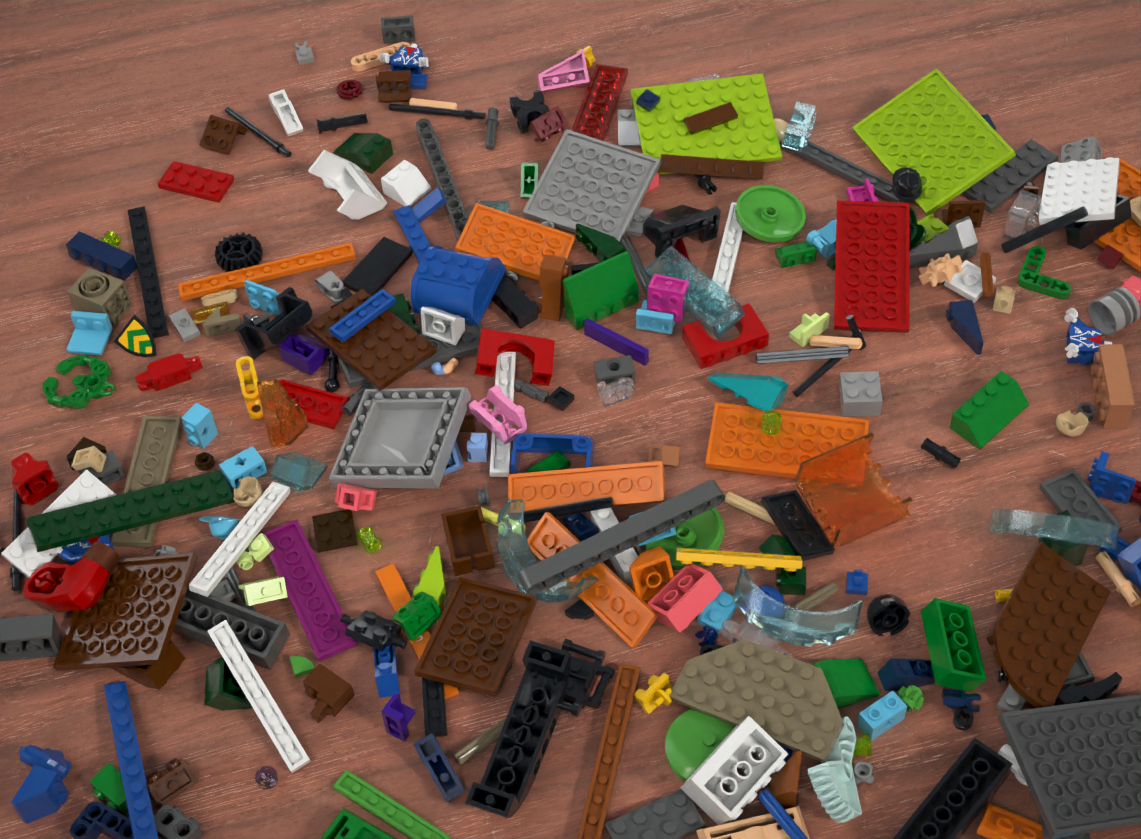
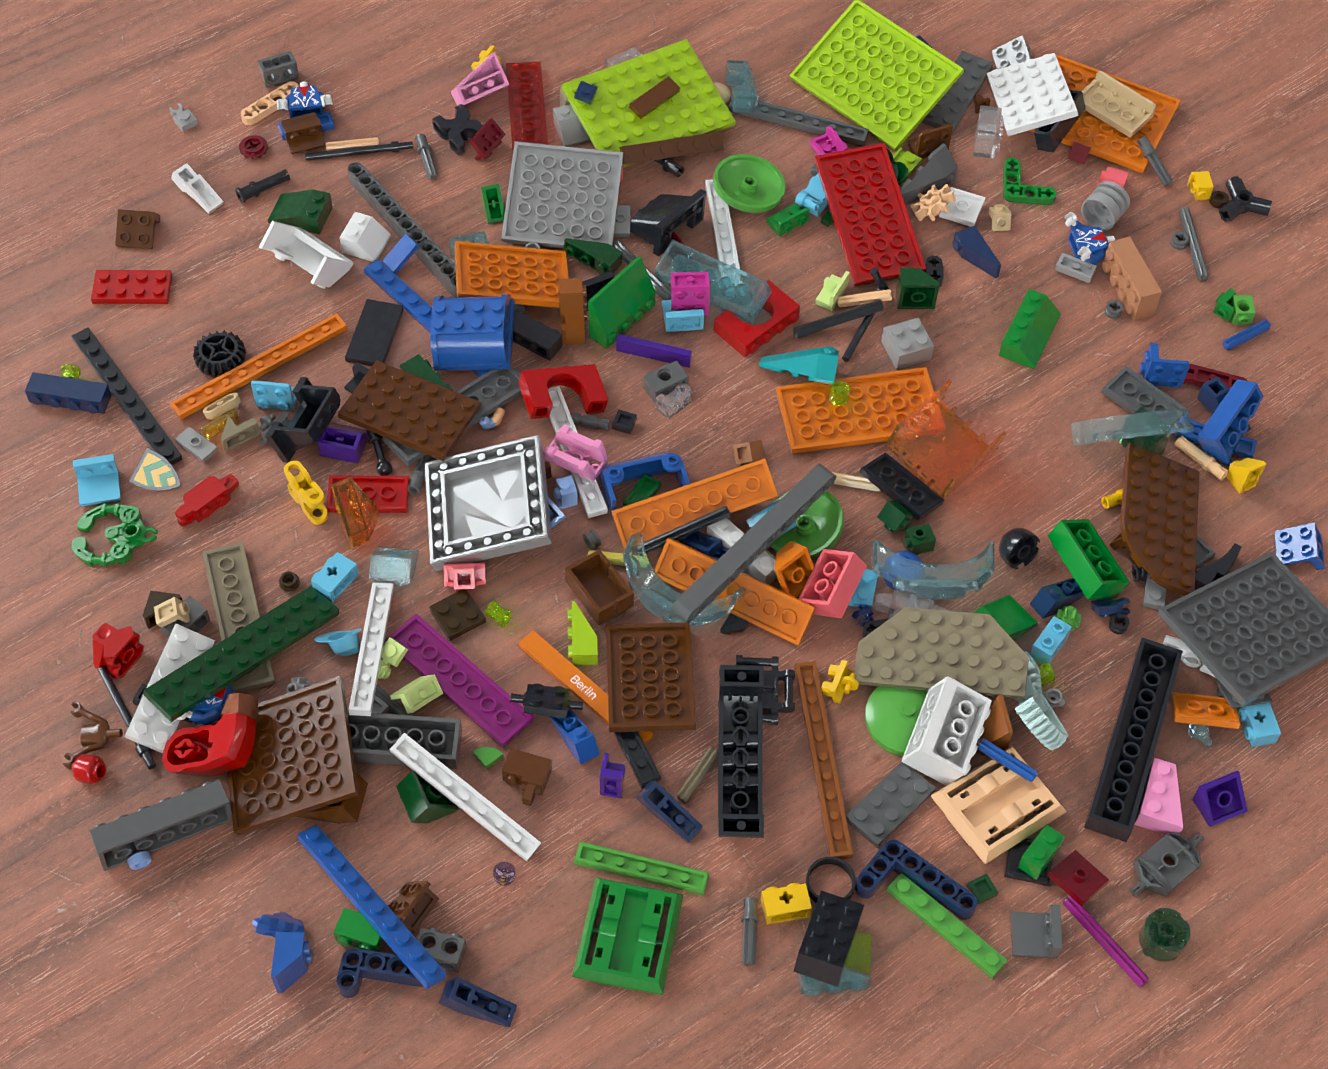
camera: 25 degrees left, 5 degrees up
(100, 294) = (93, 435): dark tan brick -> none
(199, 426) = (271, 546): medium azure brick -> none
(247, 492) = (352, 600): tan hair -> none
(276, 145) = (203, 227): black bar -> none
(330, 286) = (336, 365): light grey piece -> none
(362, 315) = (394, 388): blue plate -> none
(417, 615) = (584, 673): green bracket -> none
(442, 325) = (477, 377): white slope -> none
(746, 559) = (862, 534): yellow plate -> none
(817, 597) = (947, 548): dark tan axle -> none
(857, 582) = (976, 525): blue tile -> none
(888, 345) = (916, 289): none -> dark green slope
(907, 184) = (867, 123): black piece -> none
(920, 335) = (938, 271): none -> black beam
(940, 453) = (1002, 382): black pin -> none
(986, 274) = (977, 197): dark orange axle -> none
(1045, 229) = (1015, 140): black axle -> none
(1061, 363) = (1075, 267): none -> light grey plate
(1071, 424) = (1107, 324): tan hair -> none

